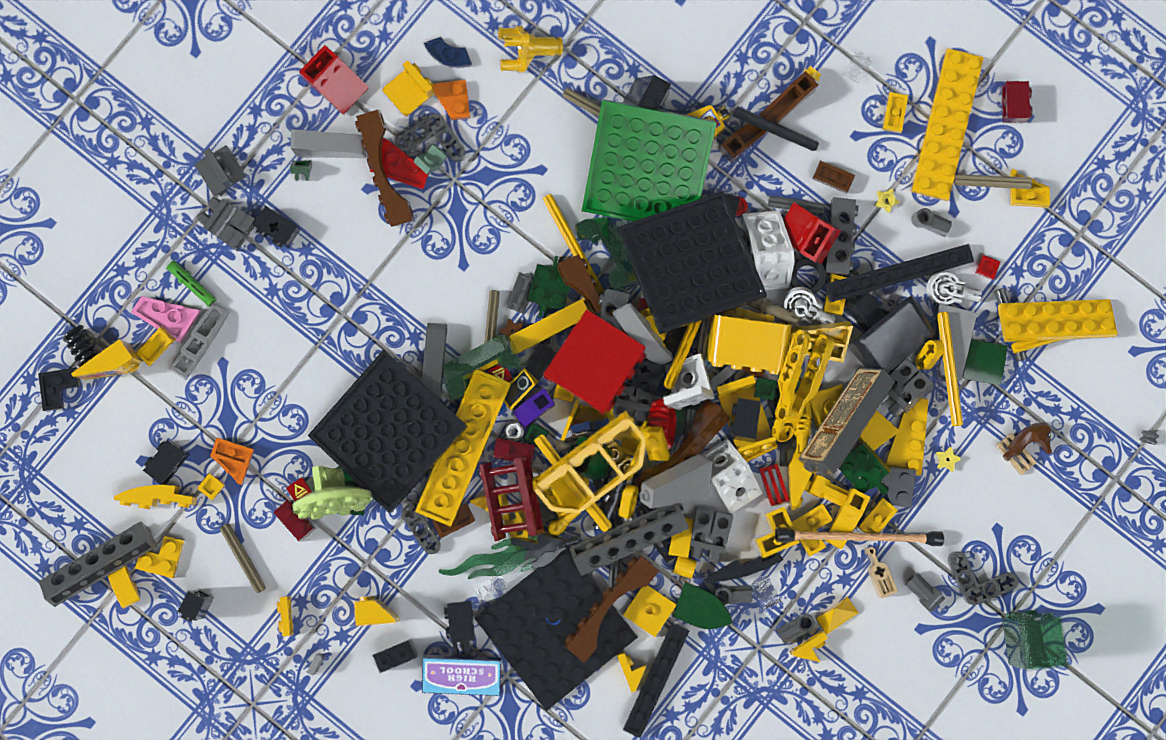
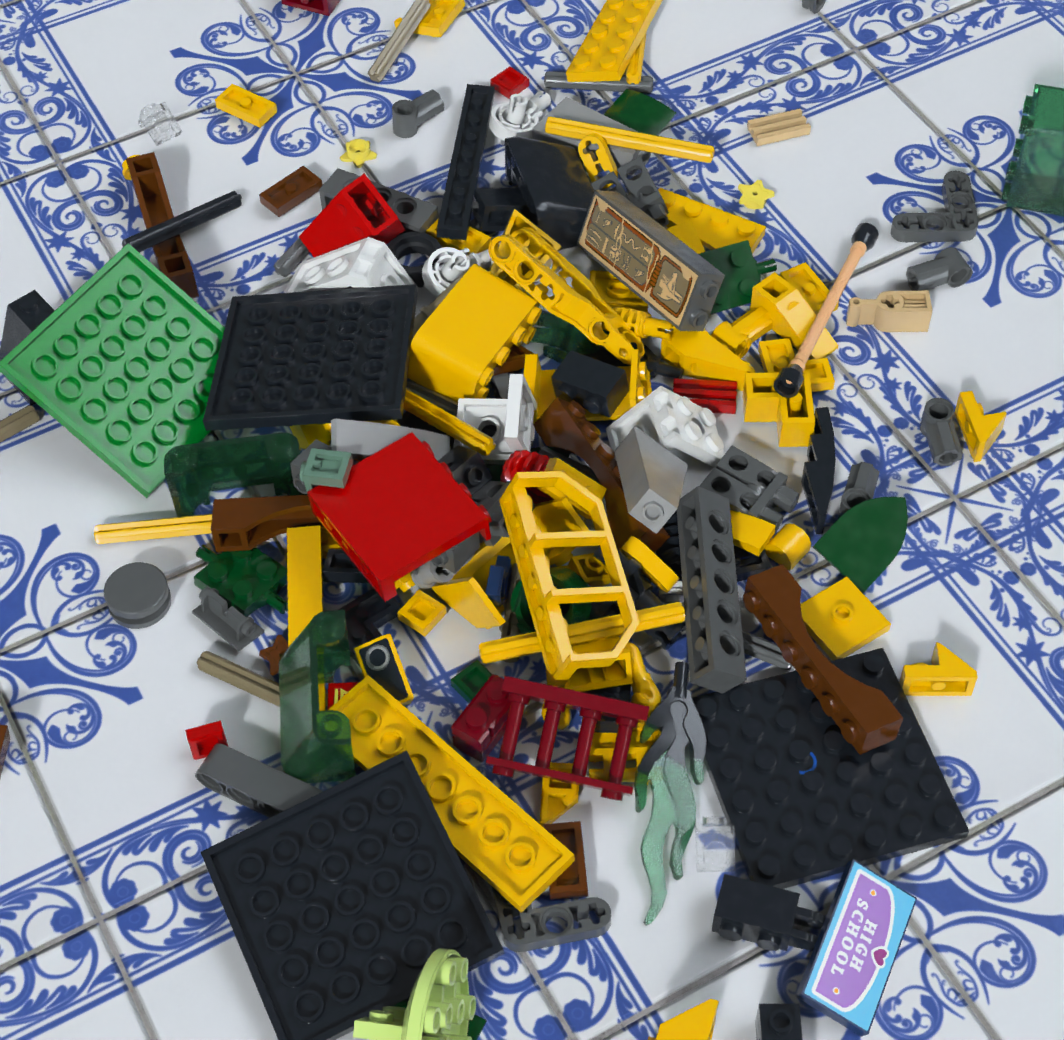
camera: 65 degrees left, 30 degrees down
(448, 319) = (204, 737): none -> red tile
(508, 431) = (449, 704): white plate -> none
(517, 239) = (137, 595): none -> dark grey head
(534, 408) = (427, 659): dark purple slope -> none
(600, 314) = (326, 468): none -> sand green bracket
(656, 680) = (993, 667): black plate -> none
(765, 389) = (553, 351): dark green tile -> none
(765, 592) = (873, 450): clear bracket -> none
(837, 615) = (936, 380): yellow slope -> none
(900, 485) = (770, 244): black wing -> none
(947, 124) = (298, 66): yellow plate -> none
(1036, 432) = (761, 98): reddish brown animal -> none

